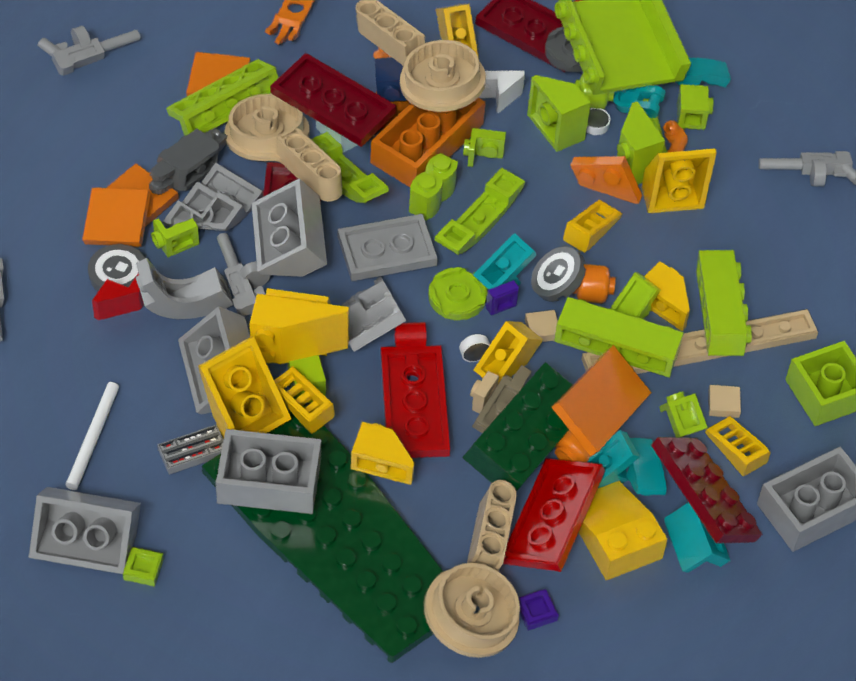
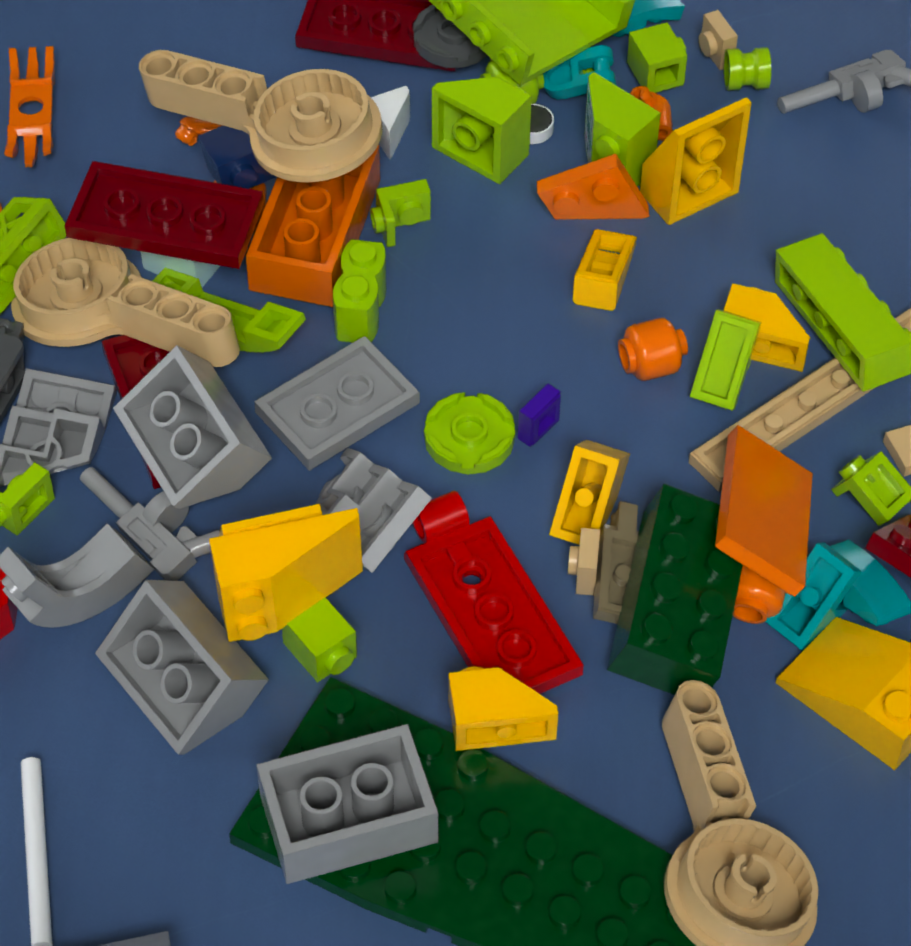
camera: 20 degrees left, 0 degrees up
(191, 449) = (200, 814): tile -> none
(243, 390) = (250, 698): yellow slope -> none
(316, 413) = (346, 695): yellow slope -> none
(457, 25) = (274, 51): yellow slope -> none
(474, 347) = (538, 501): tile -> none
(482, 214) = (446, 305): lime slope -> none
(505, 263) = (523, 364): teal slope -> none
(537, 609) = (829, 853): dark purple tile -> none
(543, 324) = (615, 430): tan tile -> none
(553, 514) = (780, 702): red tile -> none
(558, 273) = (601, 352): dark grey tile -> none
(637, 340) = (707, 407): lime brick -> none
(739, 108) = (716, 37): none -> tan plate
(748, 133) = (747, 68): none -> lime wheel

